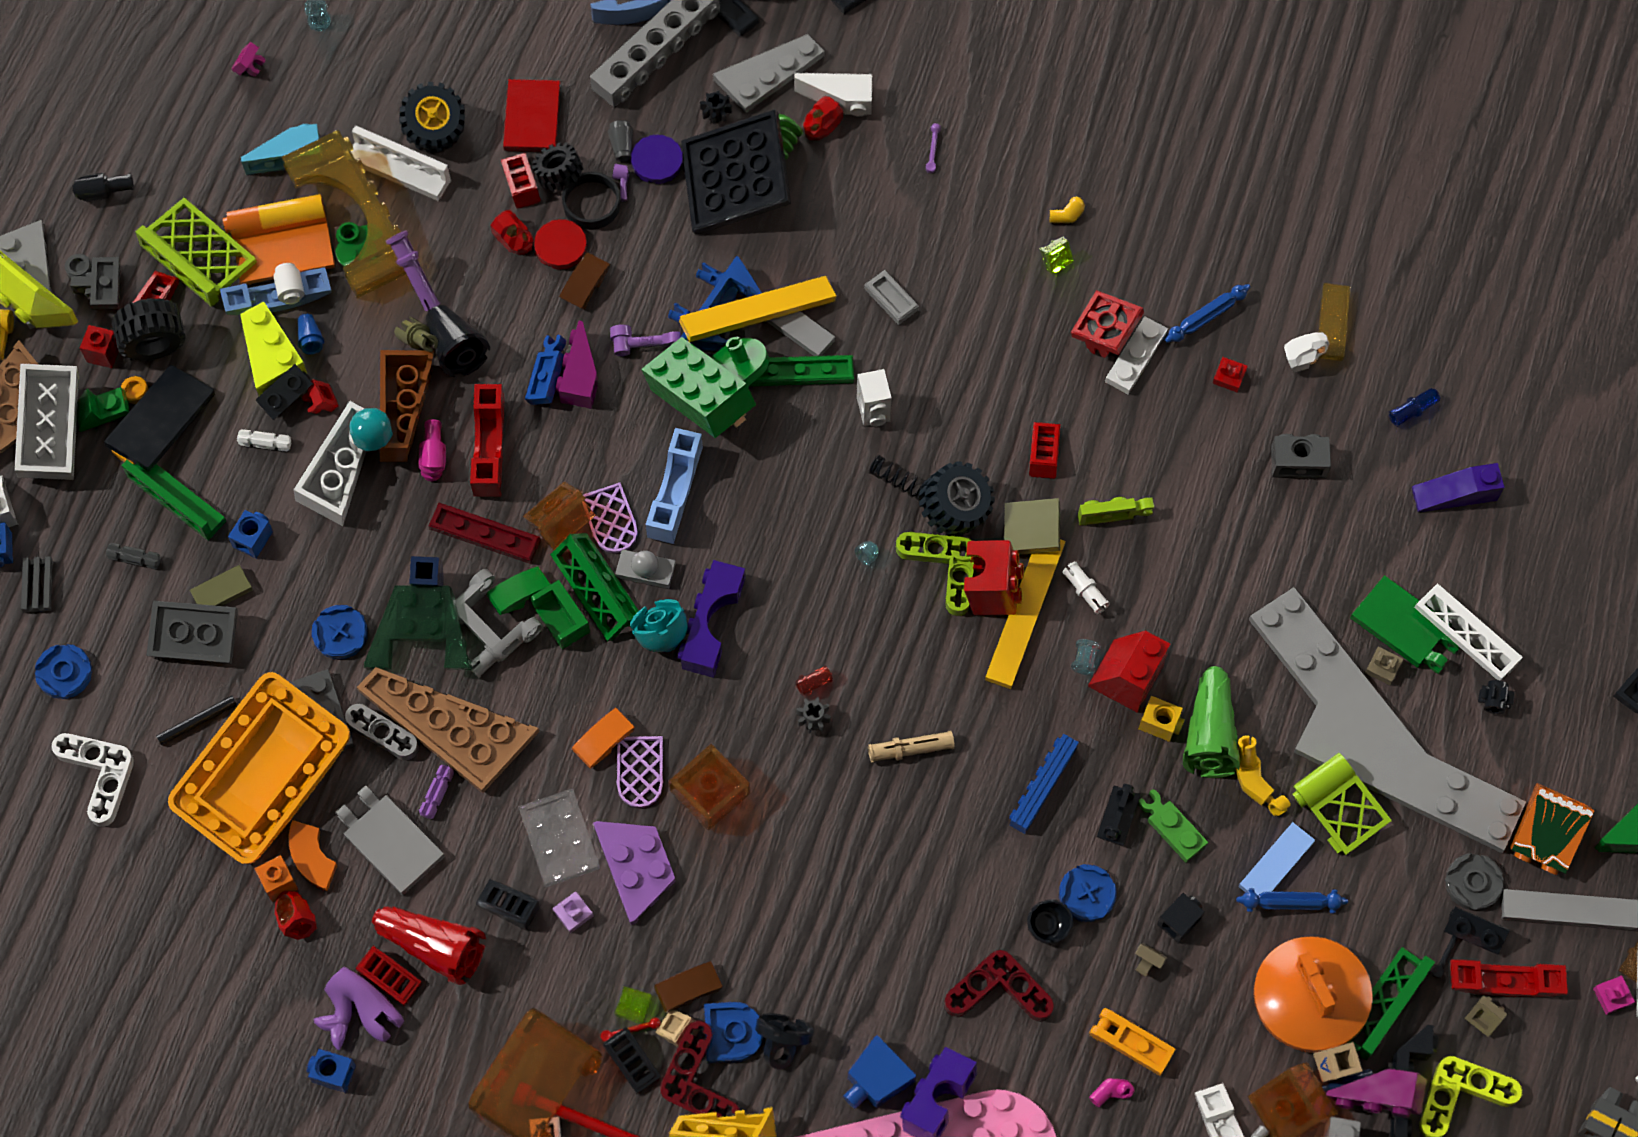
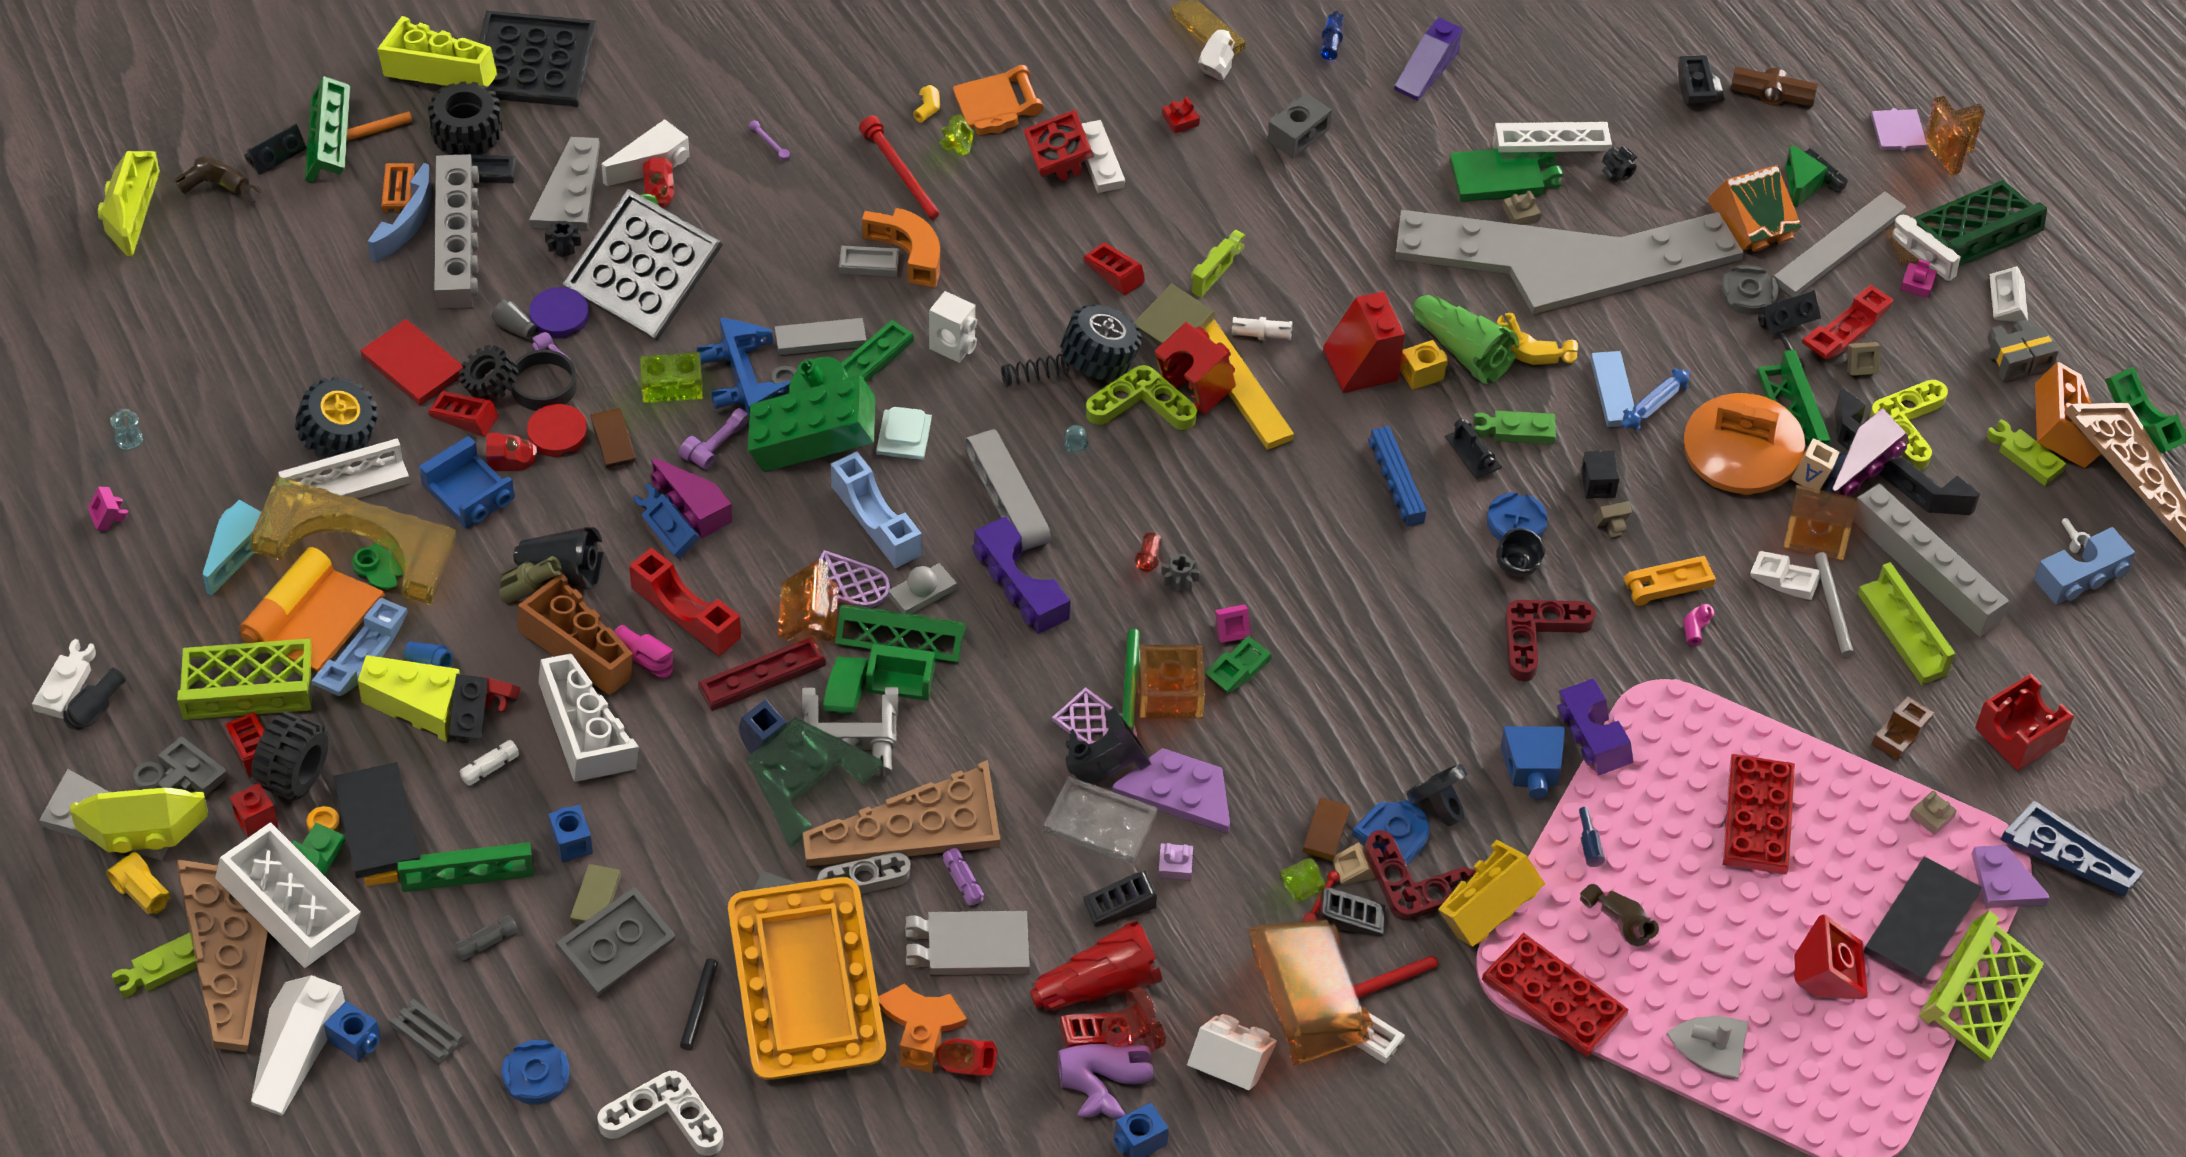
camera: 50 degrees left, 15 degrees down
(106, 156) = (64, 680): none -> white plate
(288, 283) = (367, 630): white brick -> none
(339, 632) = (735, 840): blue tile -> none
(370, 429) = (588, 660): teal hair -> none
(408, 259) = (455, 525): medium lavender pin -> none
(411, 1000) = (1137, 1019): none -> clear red tile
(445, 1074) = (1231, 1051): none -> white slope
(463, 233) = (465, 483): none -> blue panel
(602, 737) = (1043, 725): orange slope -> none
(604, 792) = (1091, 761): none -> black tile
(661, 626) = (992, 608): teal cylinder -> none
(662, 273) = (671, 377): none -> clear neon green brick
(717, 742) = (1130, 680): none -> green bar
(757, 308) = (782, 342): yellow tile -> none
(766, 446) = (904, 433): none -> light aqua piece
(774, 817) = (1239, 666): none -> green slope
(777, 549) = (1007, 487): none -> light grey beam
(802, 784) = (1232, 623): none -> dark pink tile
(910, 746) = (1269, 541): tan pin -> none
(928, 326) = (913, 236): none -> orange arch
(1005, 201) = (873, 130): none -> red piece
(1085, 657) = (1320, 371): clear light blue bush -> none
(1113, 246) = (991, 102): none -> orange piece
(1207, 313) = (1115, 88): blue wheel -> none
(1326, 784) = (1585, 308): lime piece -> none

